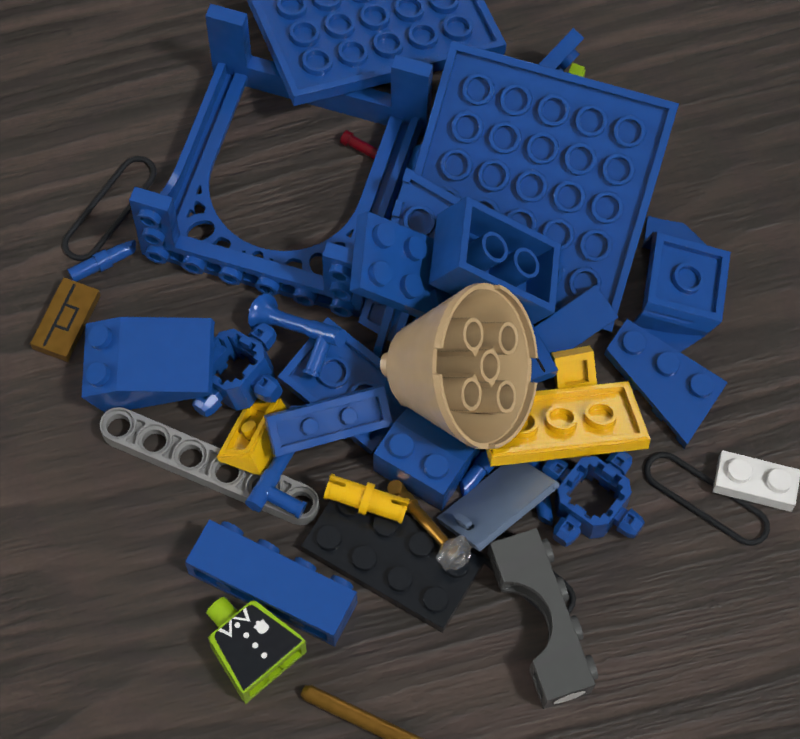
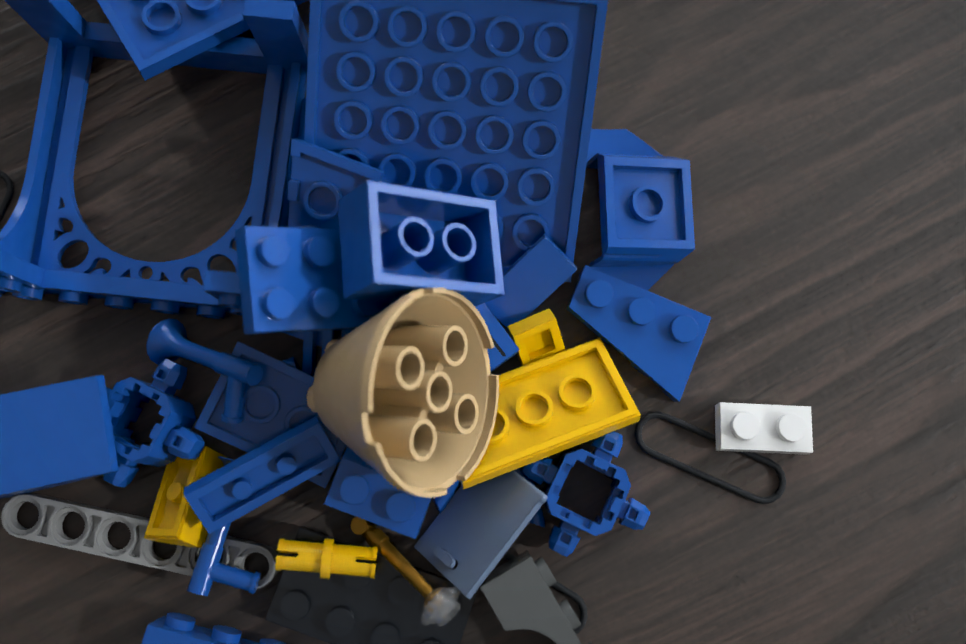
camera: 15 degrees left, 15 degrees up
(349, 139) = (228, 101): dark red piece -> none

